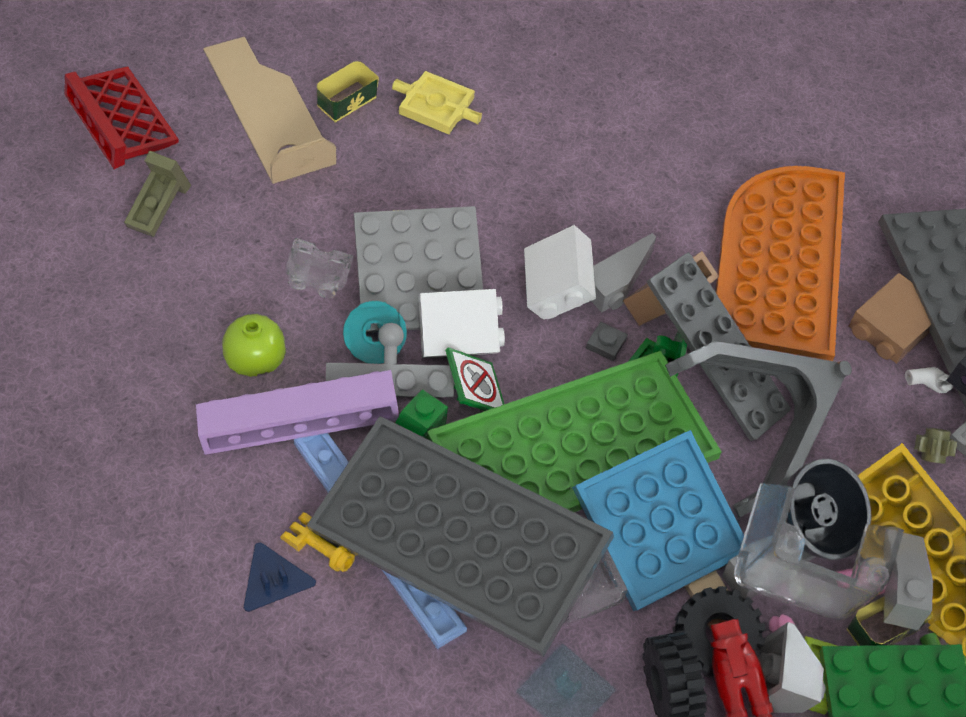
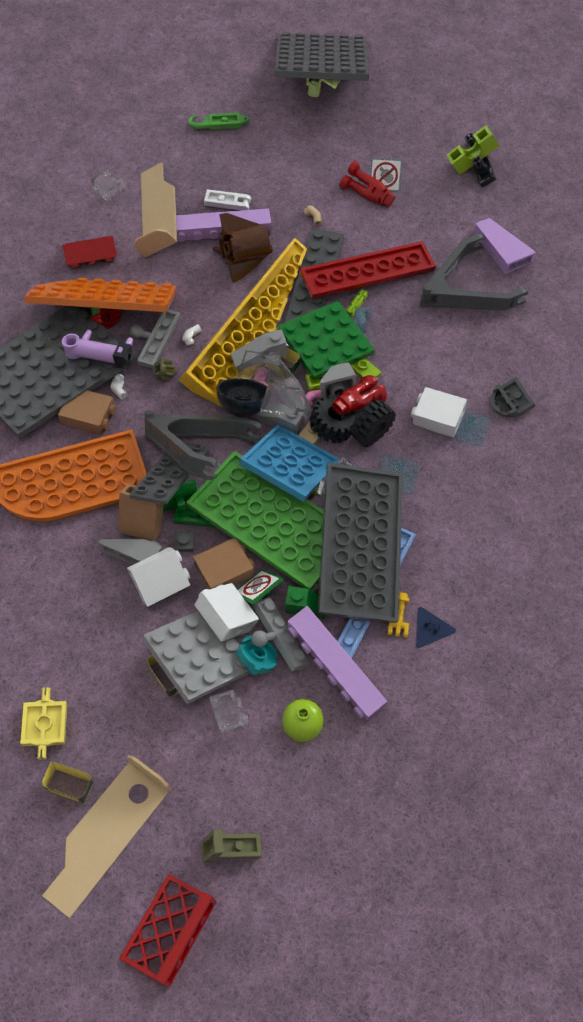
camera: 115 degrees left, 5 degrees up
(534, 358) = (224, 564): none -> medium nougat brick

